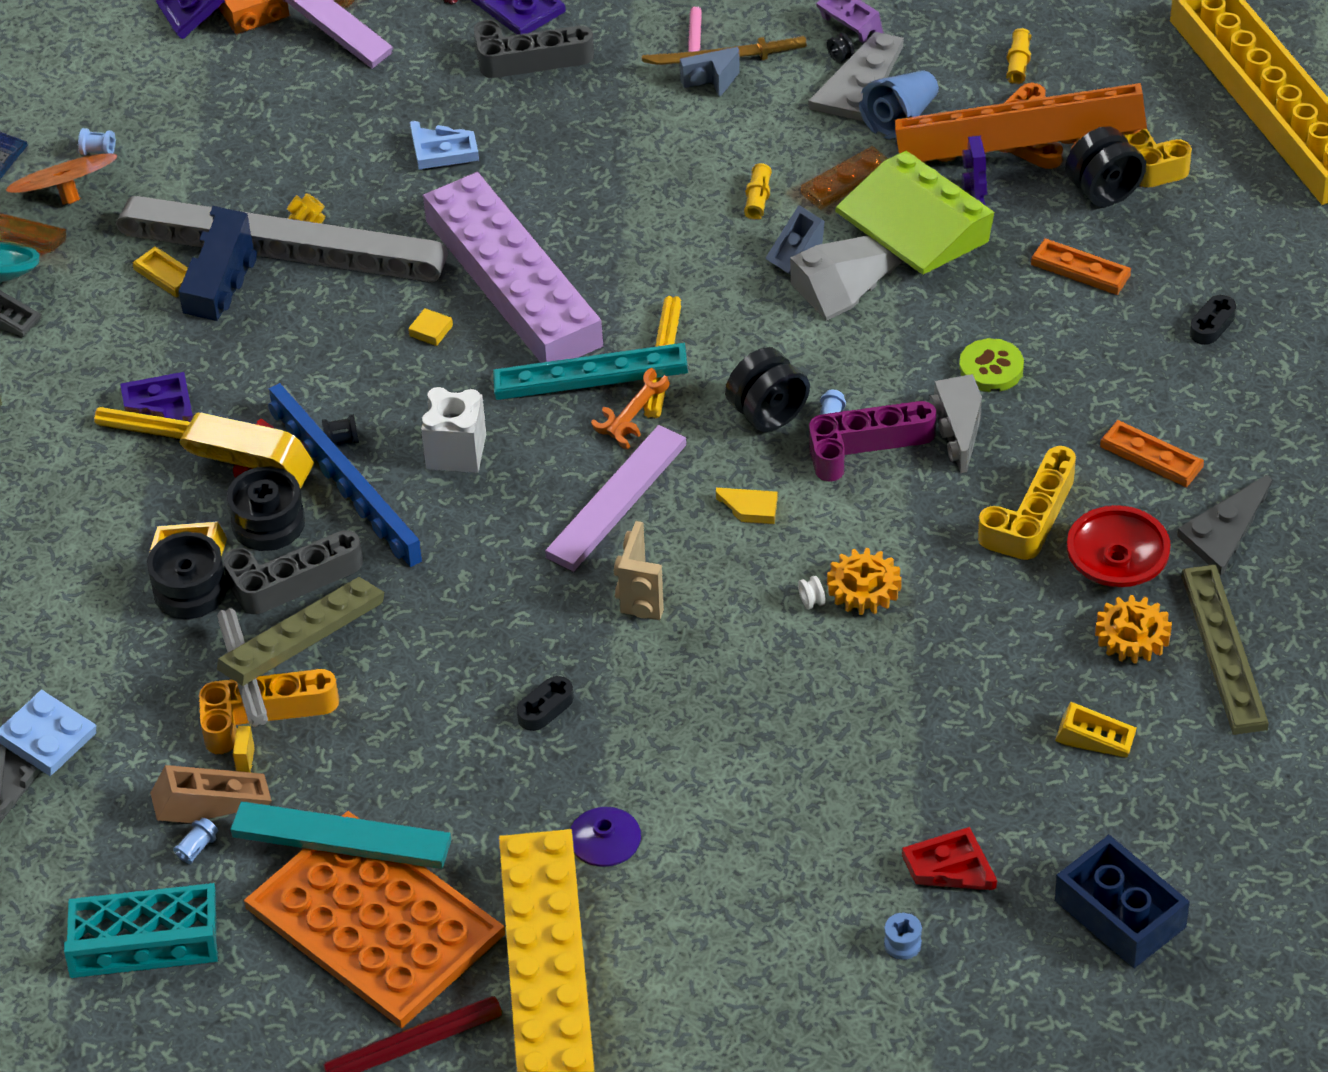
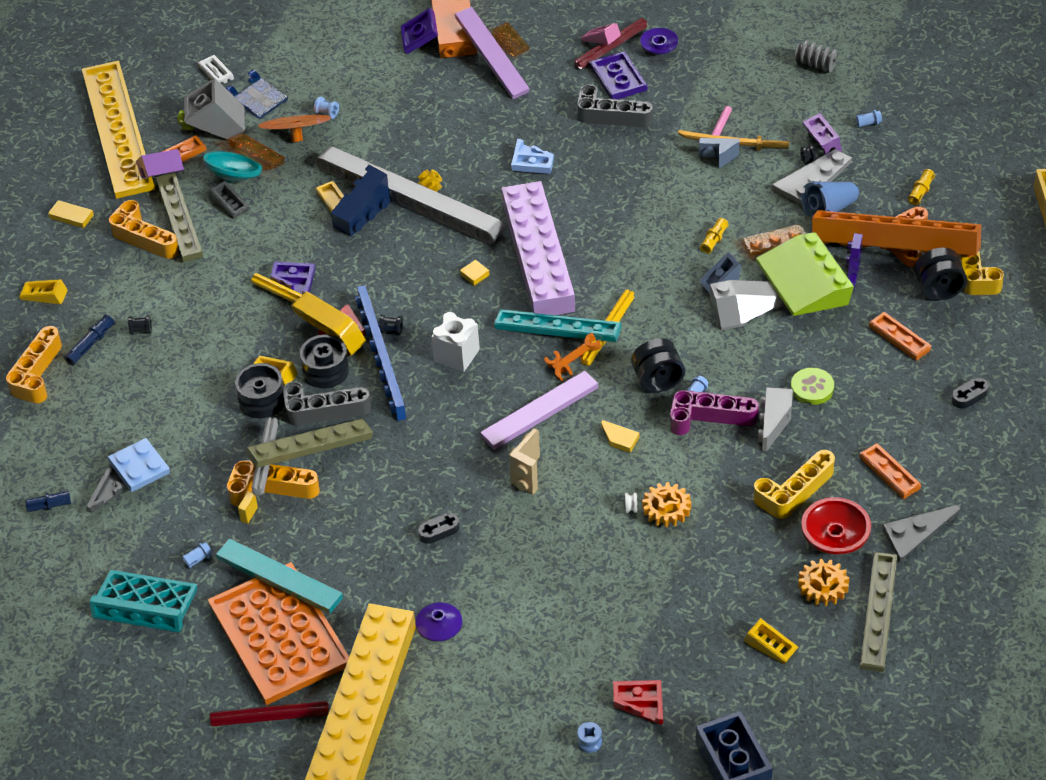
camera: 20 degrees right, 0 degrees up
(199, 793) = (214, 528): medium nougat slope -> none

